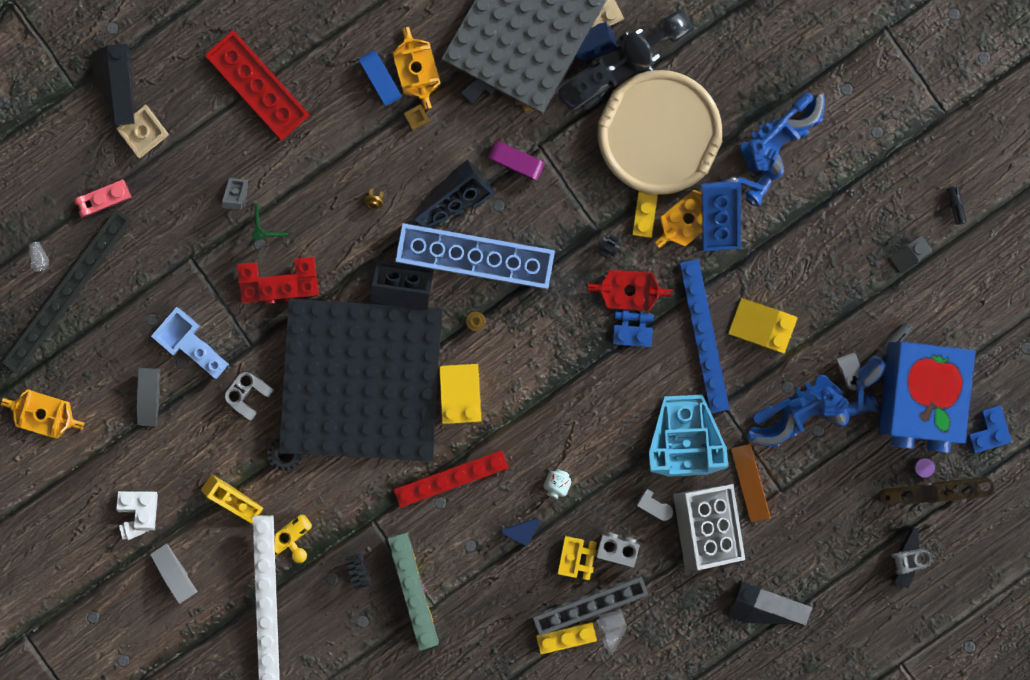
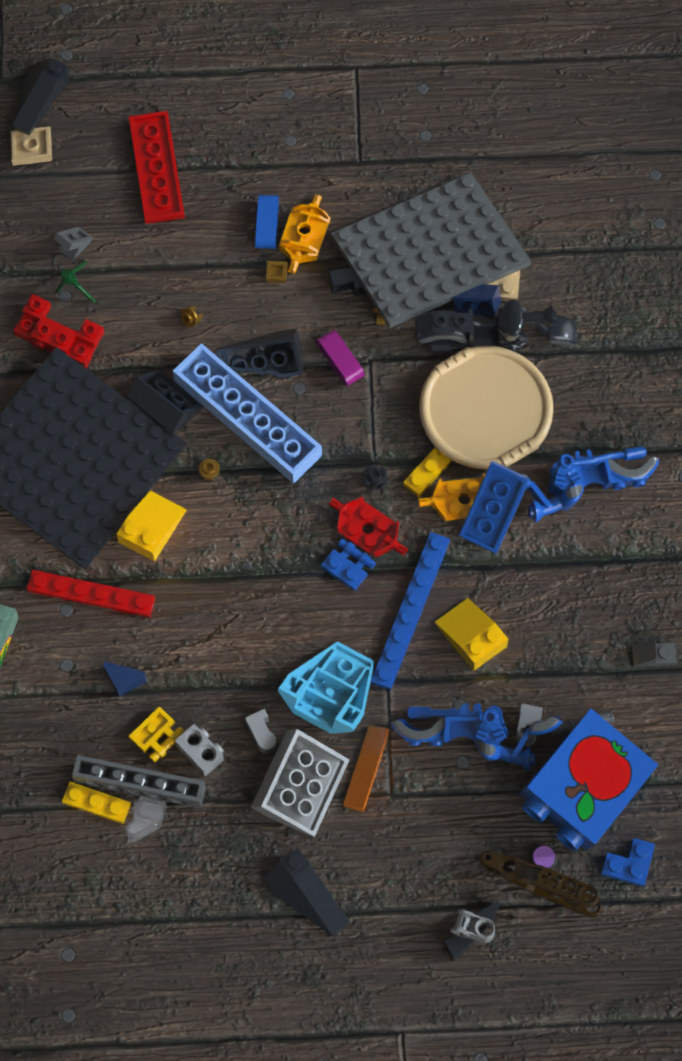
camera: 30 degrees right, 20 degrees down
(557, 483) = (184, 655): light aqua head -> none

